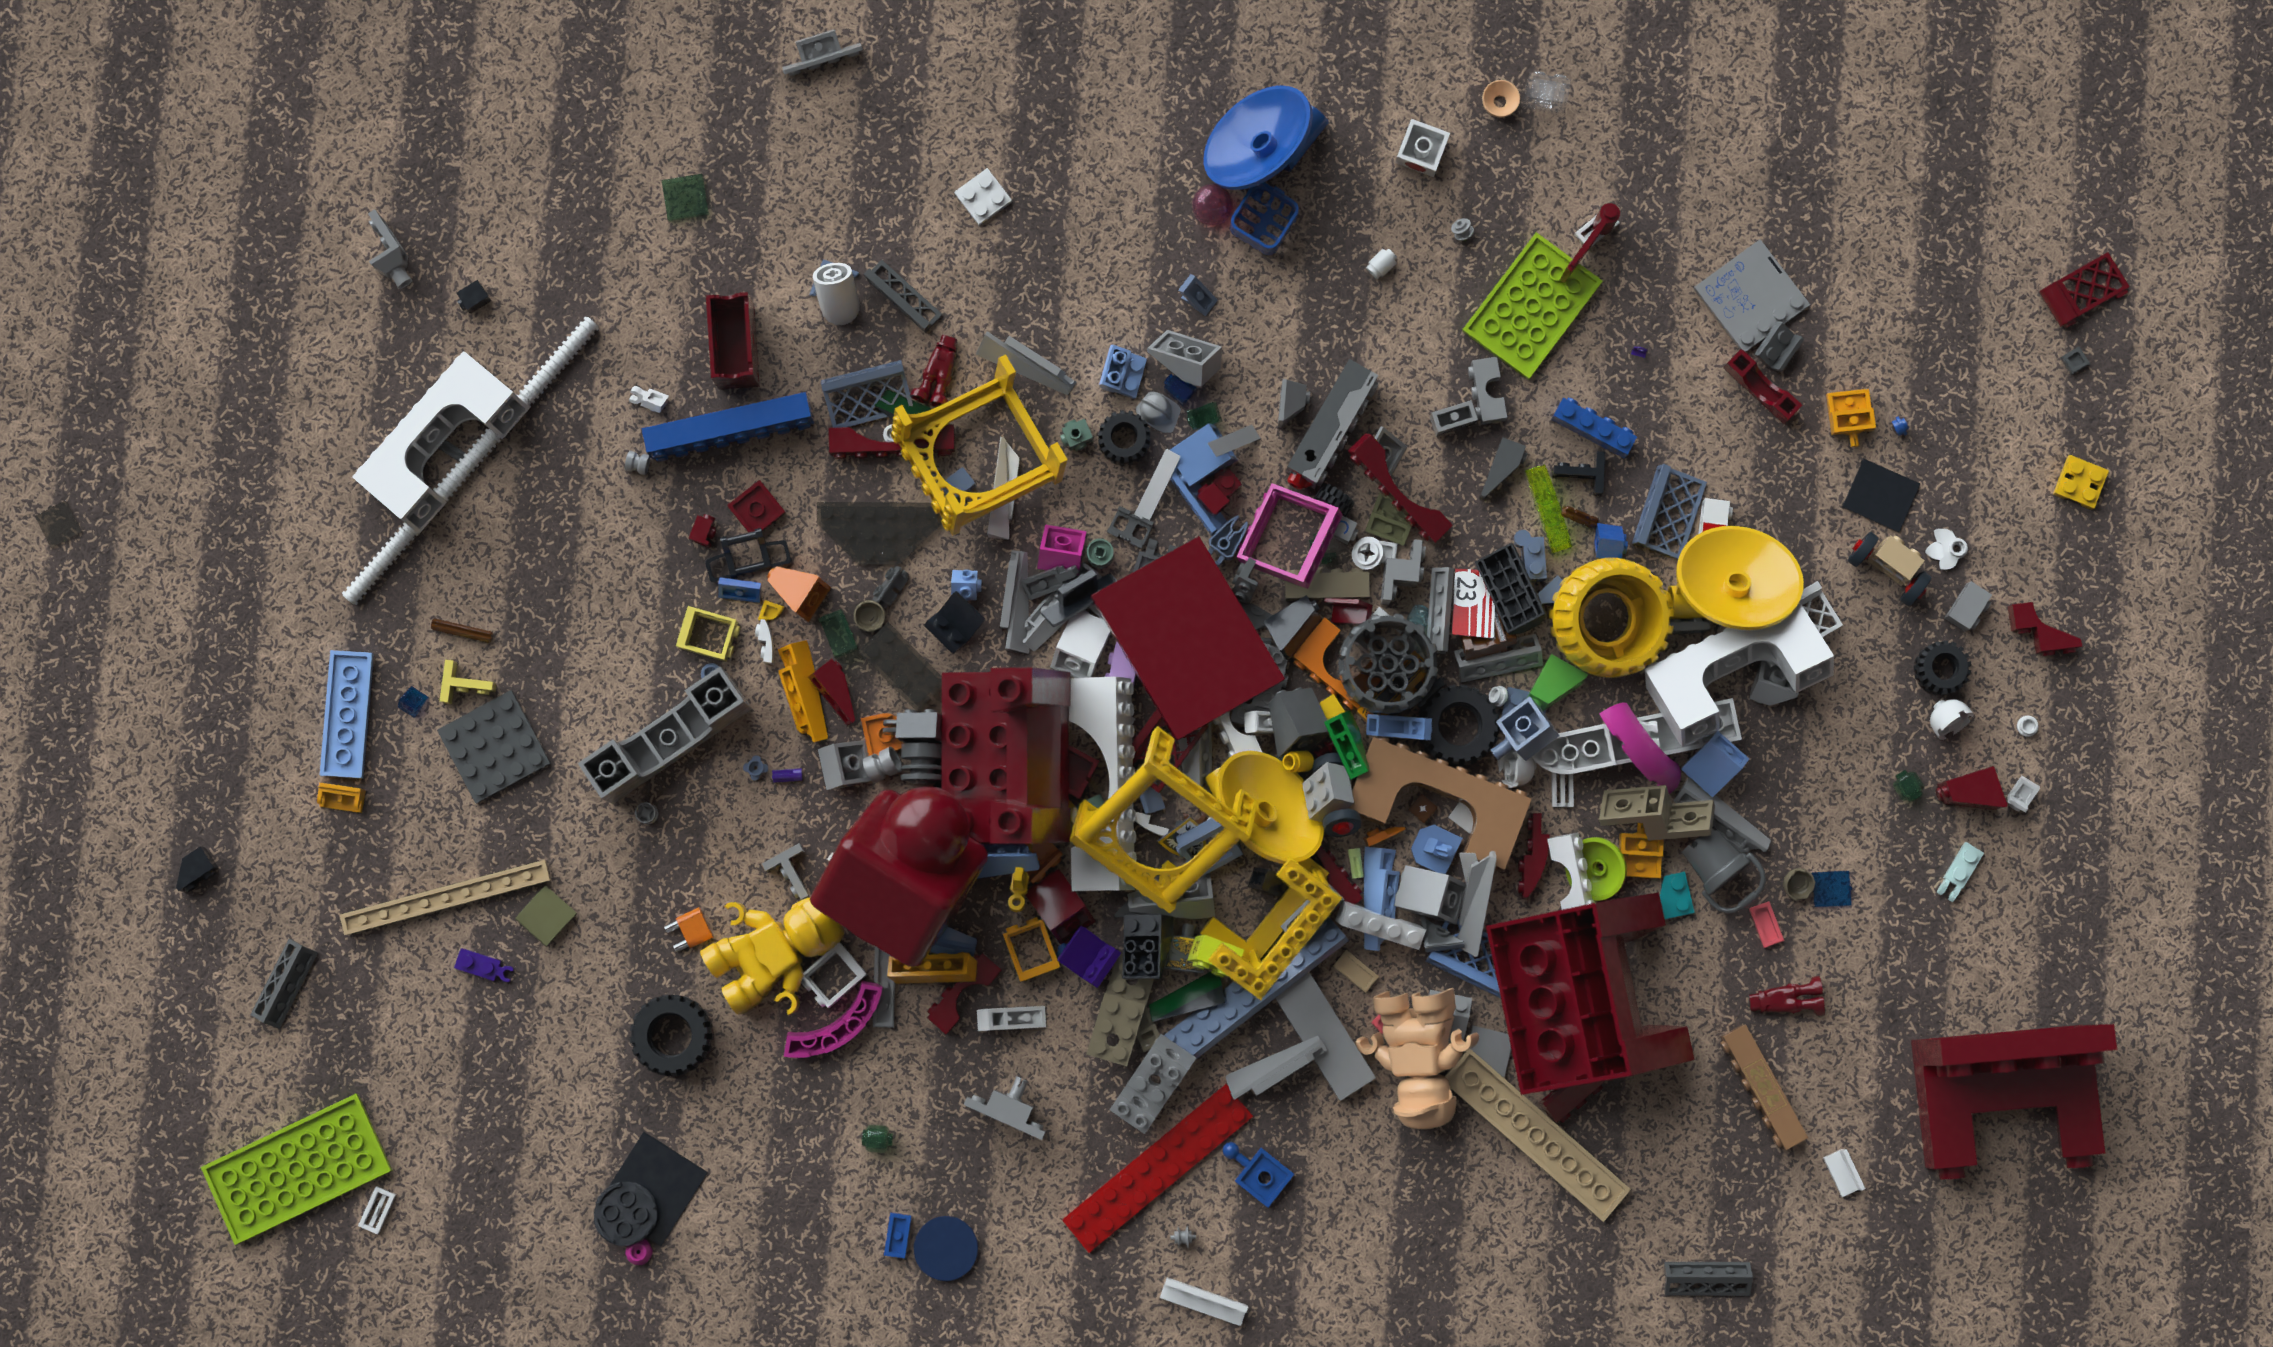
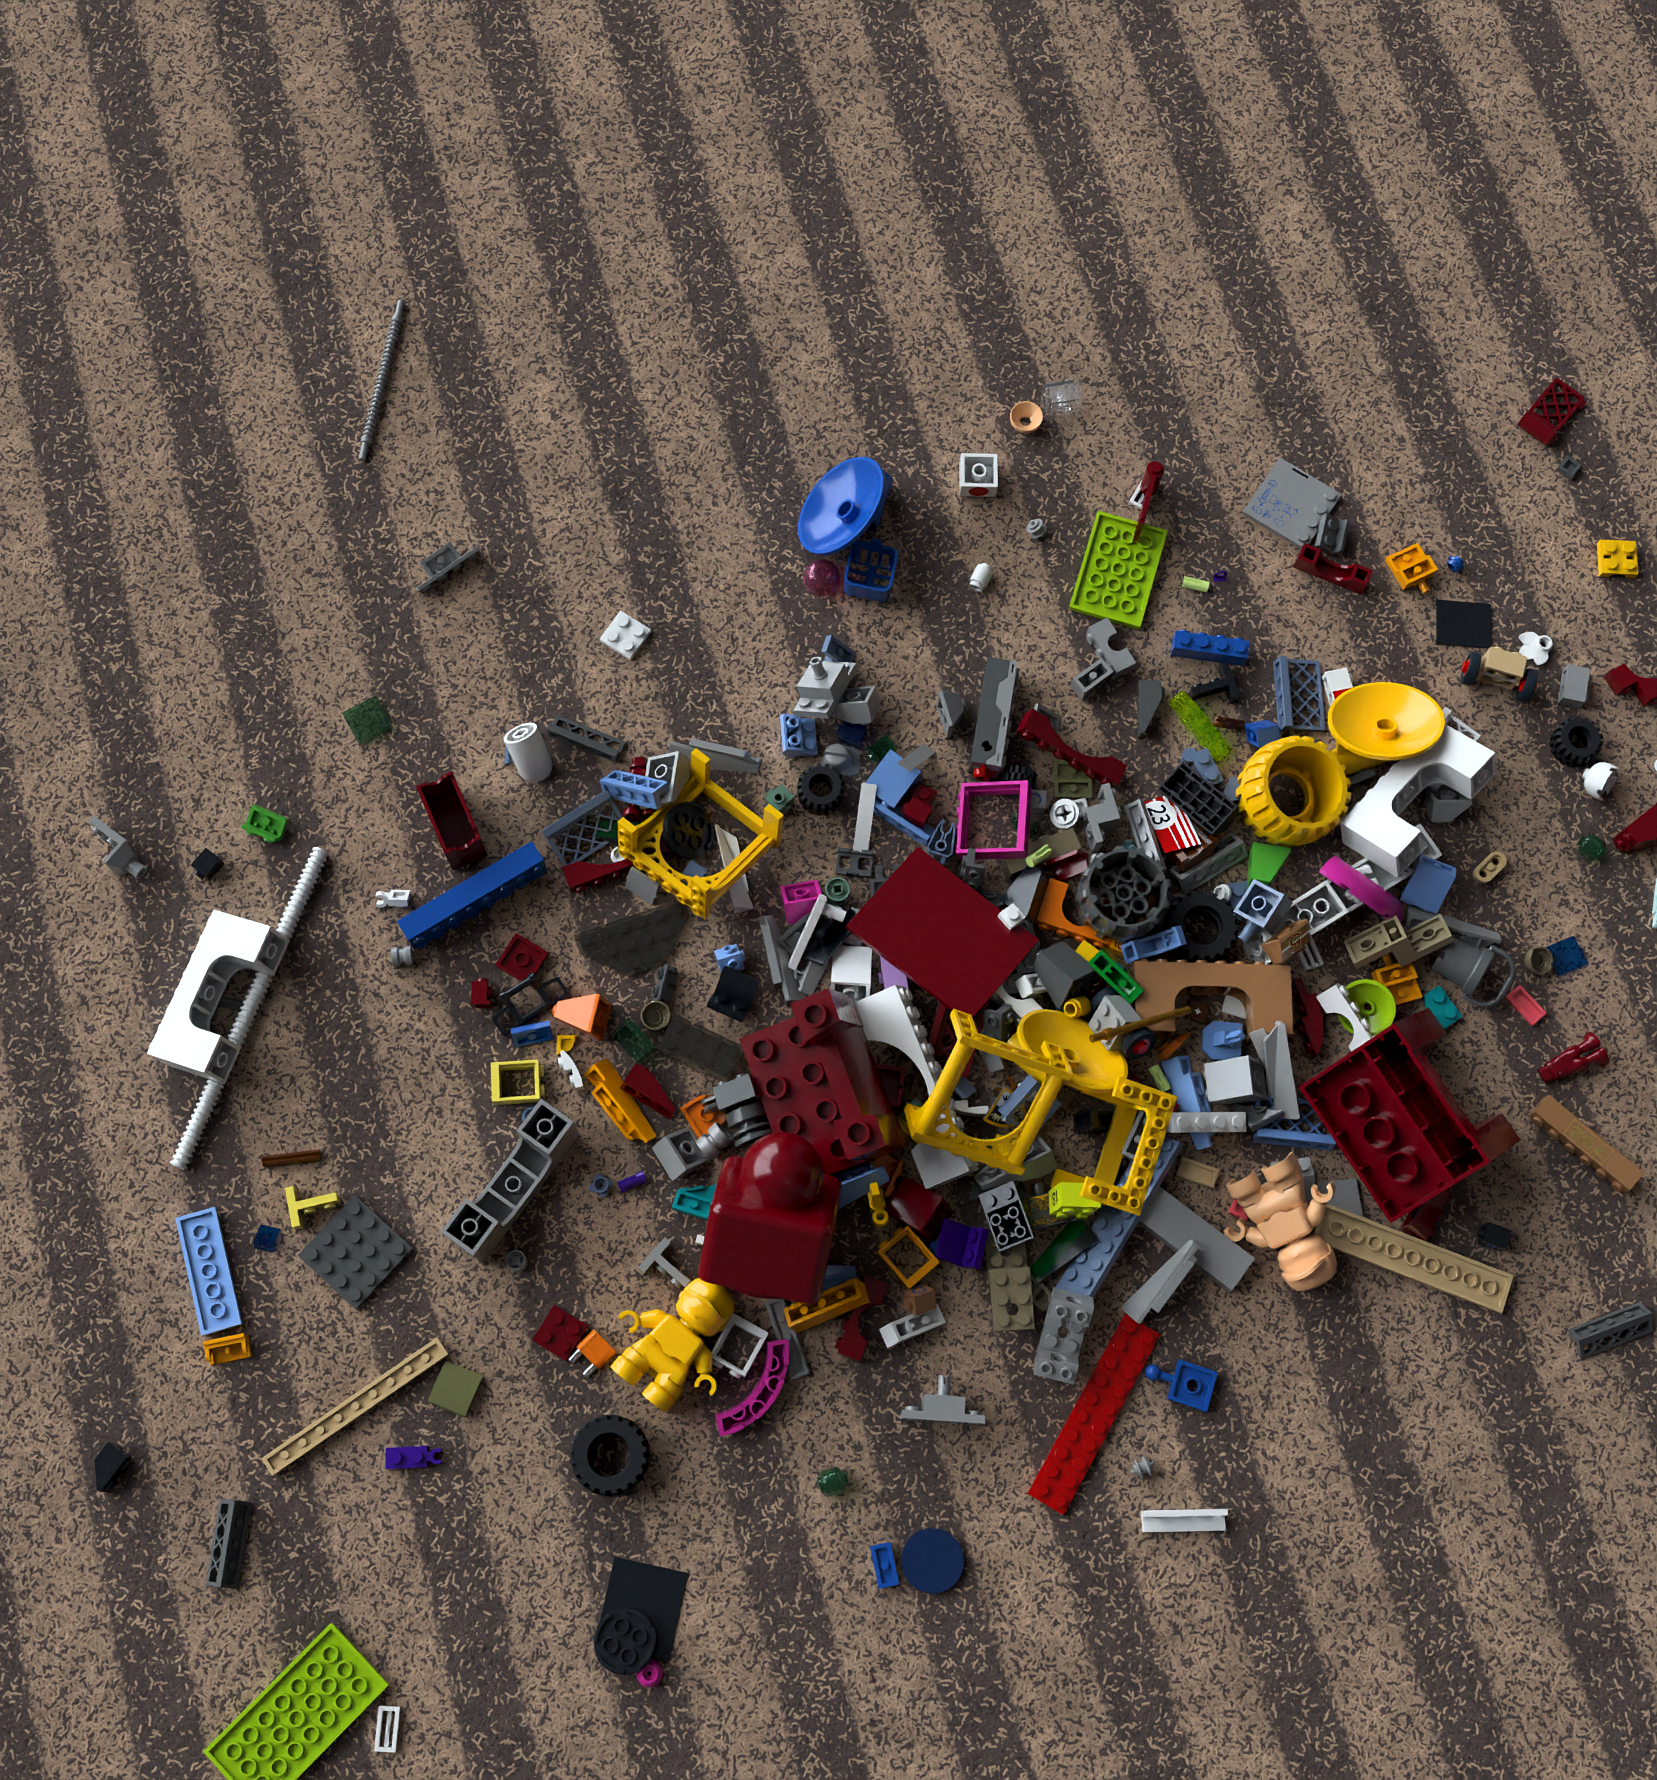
camera: 25 degrees left, 10 degrees down
(545, 274) = (265, 824): none -> bright green bracket
(665, 899) = (560, 1333): none -> dark red plate
(840, 816) = (694, 1201): none -> teal wing
(903, 475) = (642, 885): none -> light grey piece
(924, 371) = (634, 788): none -> medium blue fence
(965, 373) = (672, 768): none -> light grey slope
(971, 434) = (688, 830): none -> black tile
(1026, 995) = (919, 1299): none -> medium nougat brick
(1072, 567) = (819, 908): none -> white piece
(1165, 330) = (823, 687): none -> light grey brick
(1208, 753) = (998, 1023): none -> dark grey bracket
(1265, 645) = (1011, 916): none -> white plate
(1311, 804) = (1110, 1033): none -> pearl gold bar
(1320, 590) = (1038, 856): none -> yellowish green piece
(1537, 773) = (1287, 941): none -> medium nougat slope
(1609, 350) = (1195, 584): none -> yellowish green piece
(1628, 1144) = (1494, 1236): none -> black brick
(1790, 768) = (1488, 868): none -> tan plate

